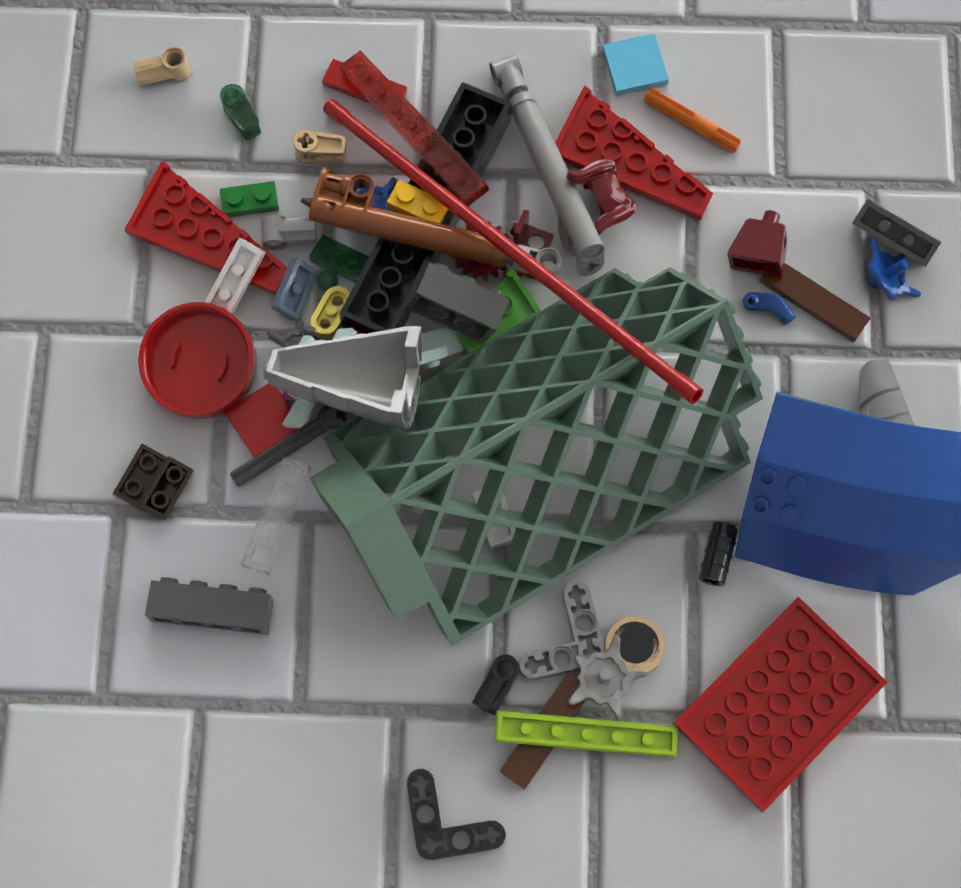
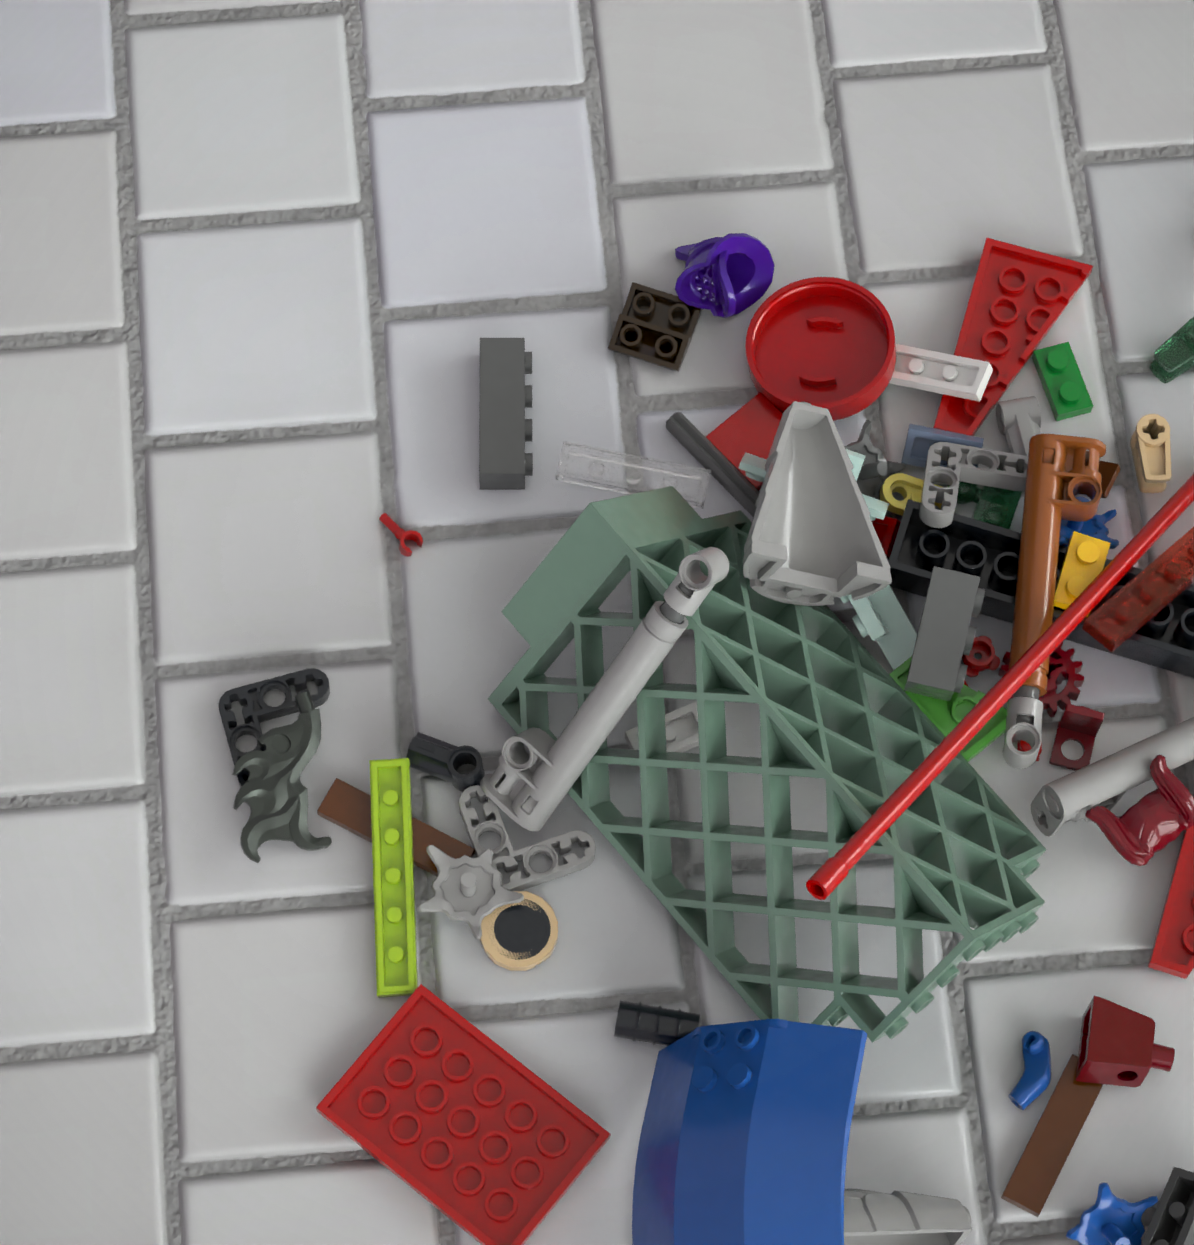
camera: 80 degrees right, 5 degrees down
(118, 422) = (724, 273): none -> dark purple helmet
(299, 699) = (402, 535): none -> red hand
(319, 274) = (960, 468): none -> light grey beam
(504, 819) = (274, 785): none -> pearl dark grey piece
(522, 611) = (537, 782): none -> light grey piece

